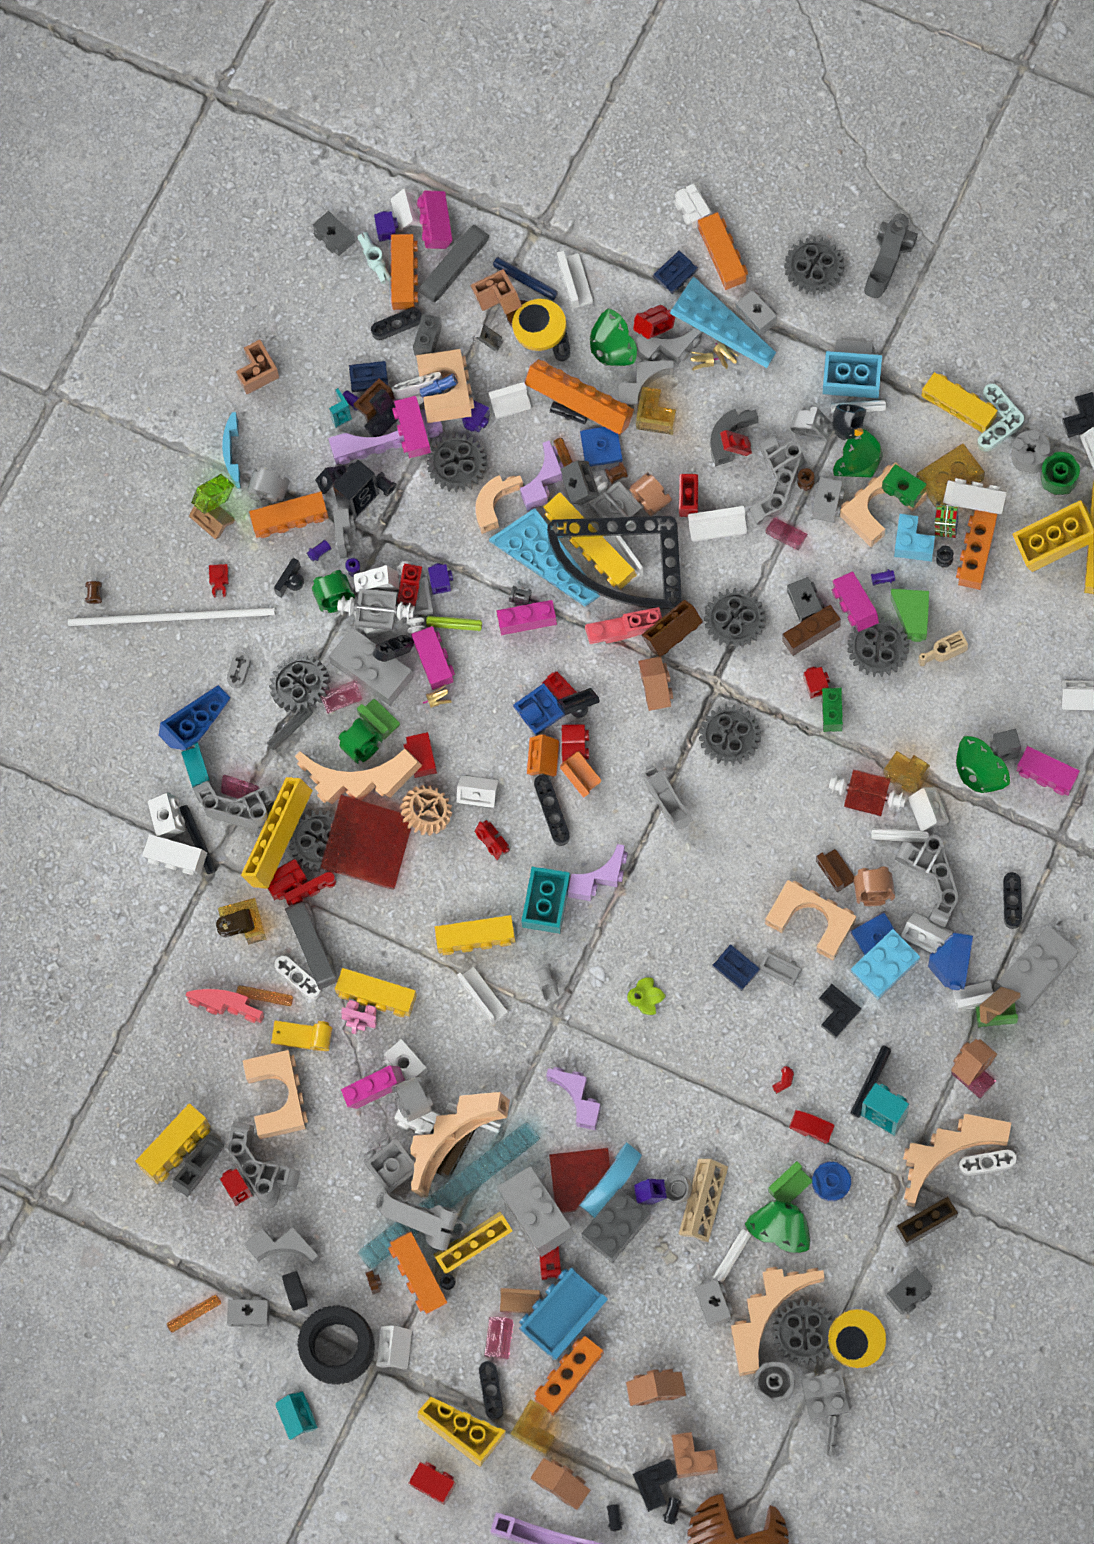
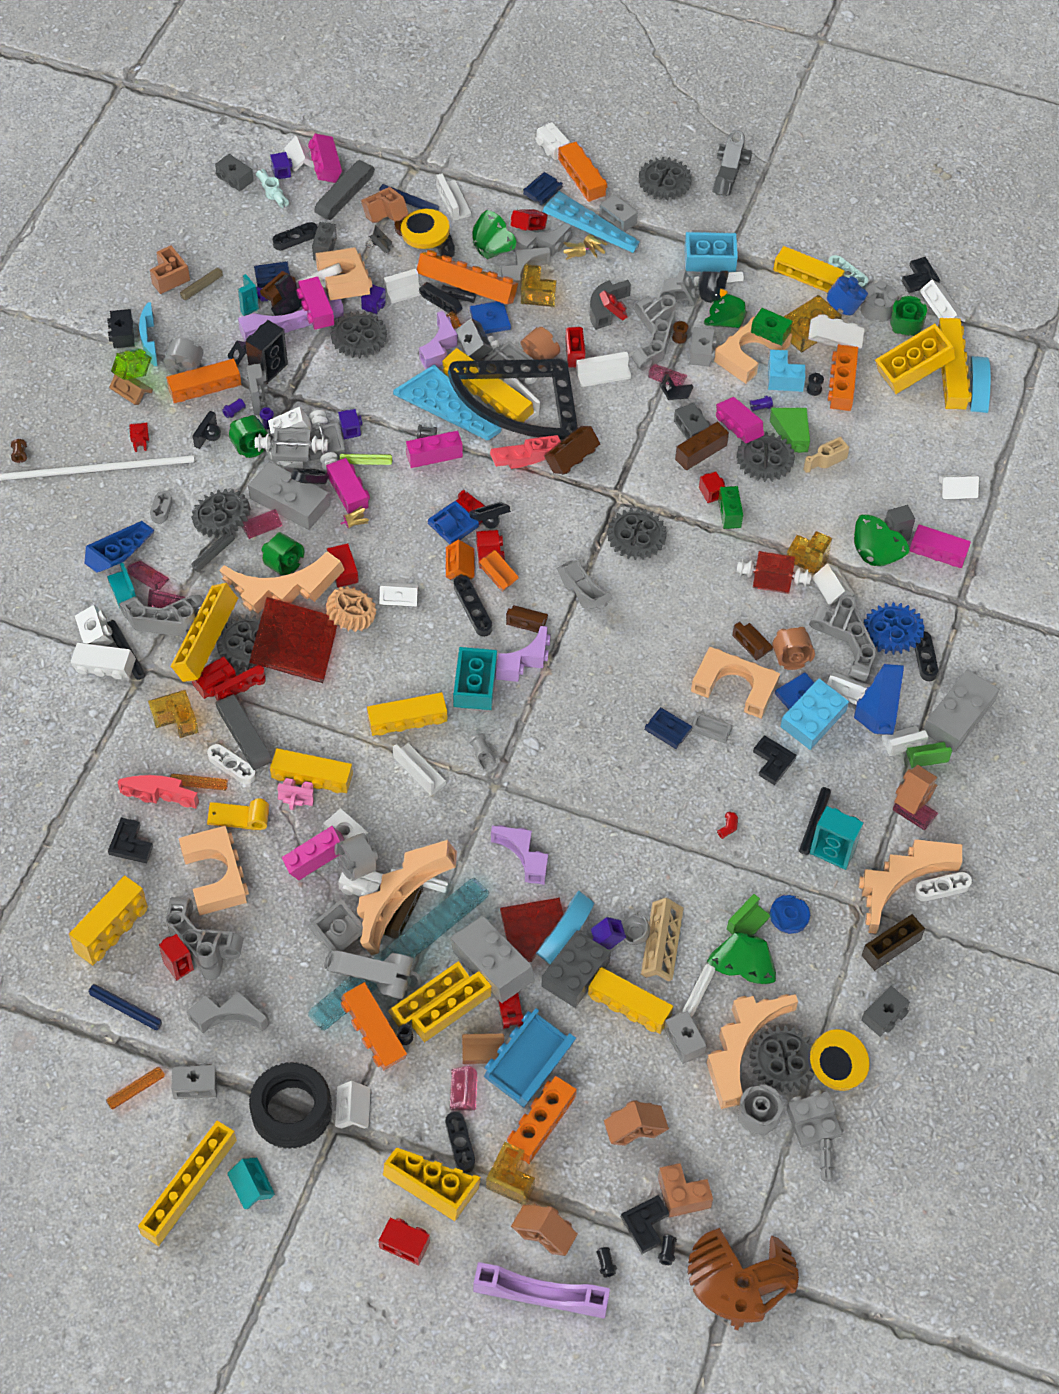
camera: 15 degrees left, 15 degrees down
(186, 1231) = (125, 1007): none -> dark blue axle
(190, 1058) = (126, 845): none -> black plate
(197, 1165) = (134, 943): dark grey slope -> none
(205, 431) = (121, 328): none -> black brick
(222, 752) = (147, 575): none -> clear pink slope
(237, 923) = (167, 710): dark brown piece -> none
(238, 1412) = (187, 1183): none -> yellow brick
(291, 383) = (201, 283): none -> dark tan axle
(295, 1290) = (243, 1054): black tyre -> none
(374, 1281) = (327, 1040): reddish brown plate -> none
(378, 717) = (299, 535): bright green panel -> none
(385, 484) = (294, 355): black bush -> none
(403, 271) = (299, 196): orange brick -> none
(409, 584) = (322, 423): red slope -> none
(439, 386) = (339, 269): blue pin -> none
(488, 498) = (392, 357): light nougat arch -> none
(493, 1256) = (451, 1006): none -> yellow brick
(496, 846) = (414, 632): red hinge -> none
(549, 419) = (440, 298): none -> black beam
(605, 828) = (525, 618): none -> reddish brown panel
(616, 473) = (506, 335): reddish brown bush -> none
(648, 996) = (581, 759): lime plate -> none
(655, 680) = (562, 493): nougat brick -> none
(664, 1261) = (630, 1000): none -> yellow brick
(747, 629) = (629, 441): dark grey gear -> none
(792, 556) = (675, 392): none -> black bracket
(811, 1125) = (762, 862): red slope -> none
(899, 835) = (806, 607): white axle -> none
(946, 521) = (813, 353): piece -> none
(971, 880) = (894, 628): none -> blue gear
(992, 448) = (846, 295): none -> blue brick
(997, 1003) = (930, 737): medium nougat panel -> none

